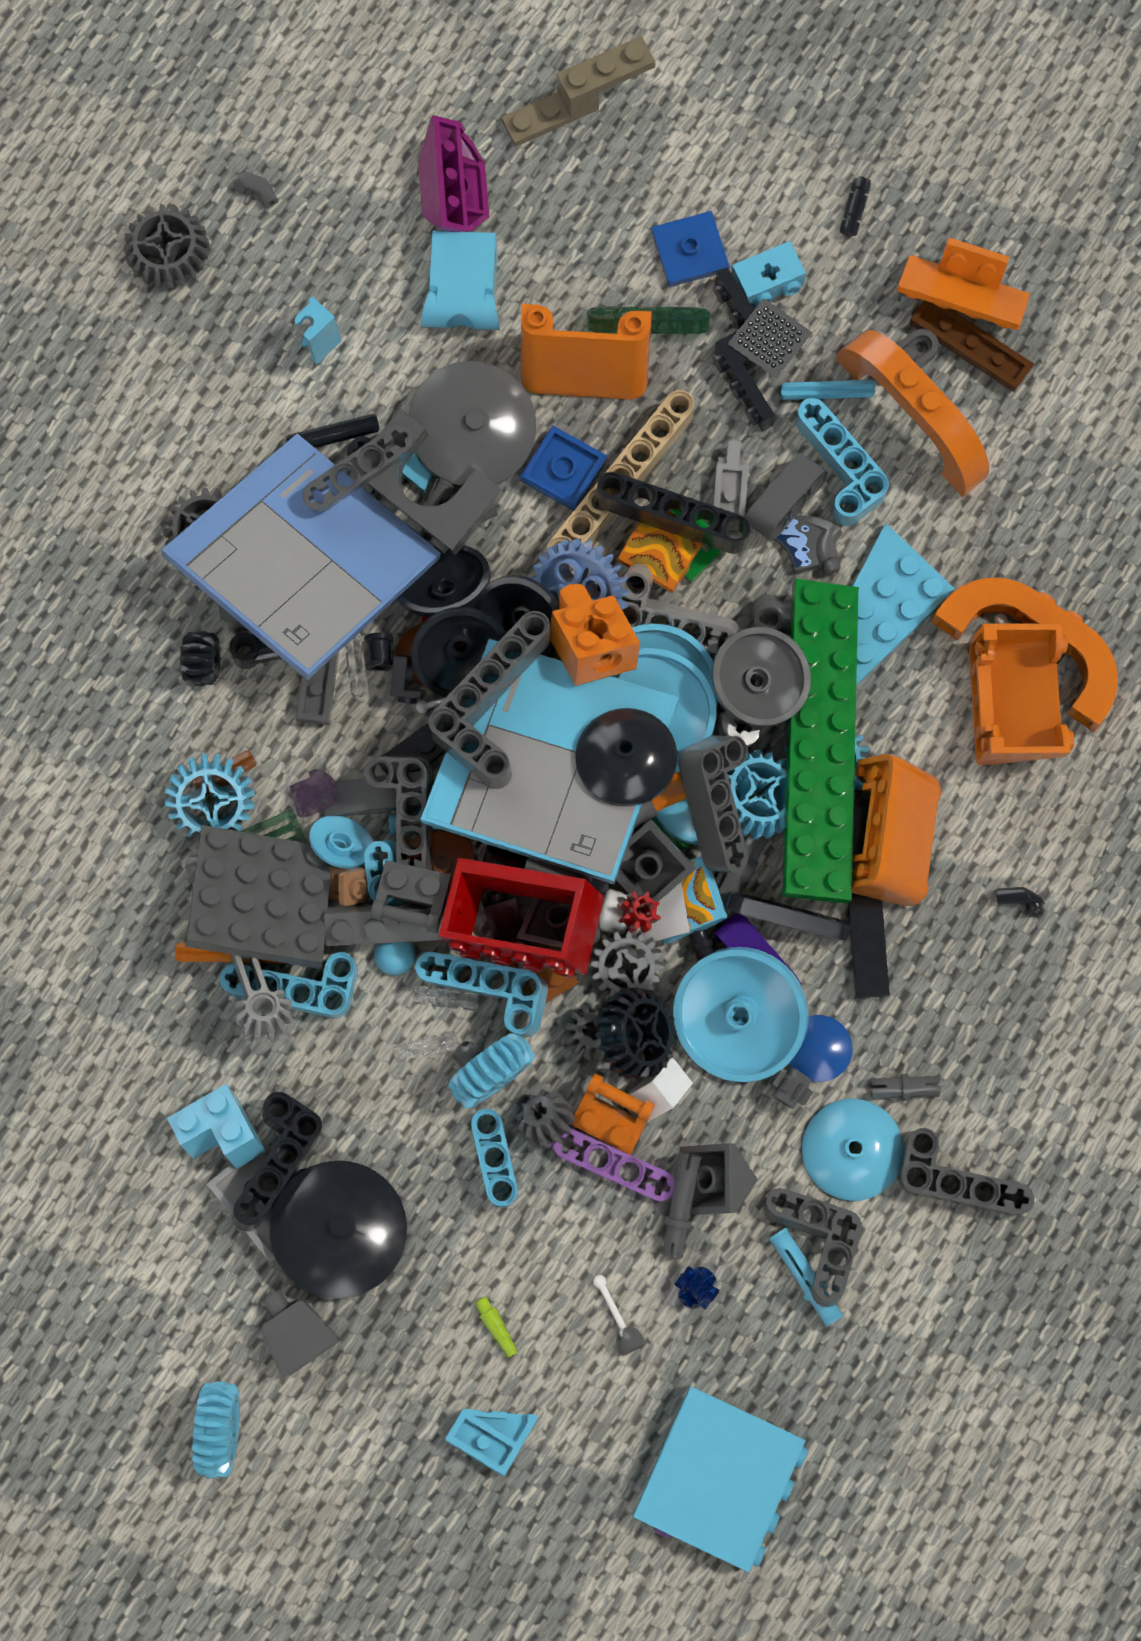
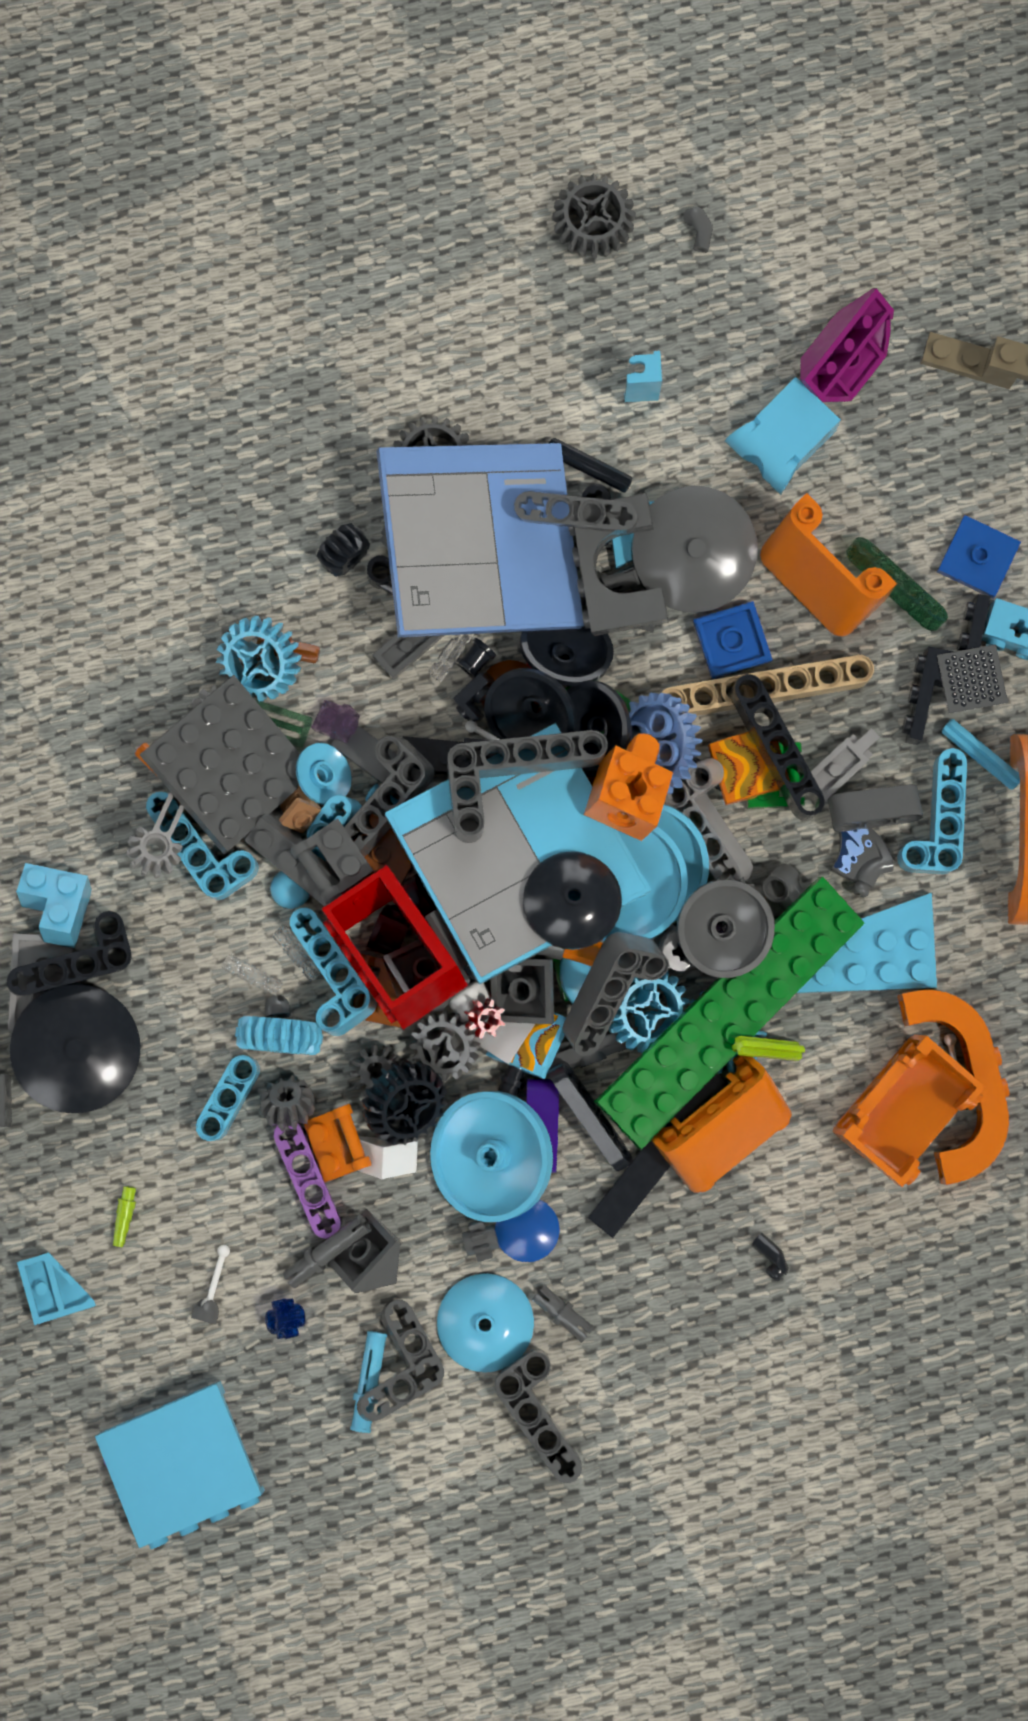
camera: 40 degrees right, 5 degrees up
(874, 742) = (768, 1048): none -> lime axle

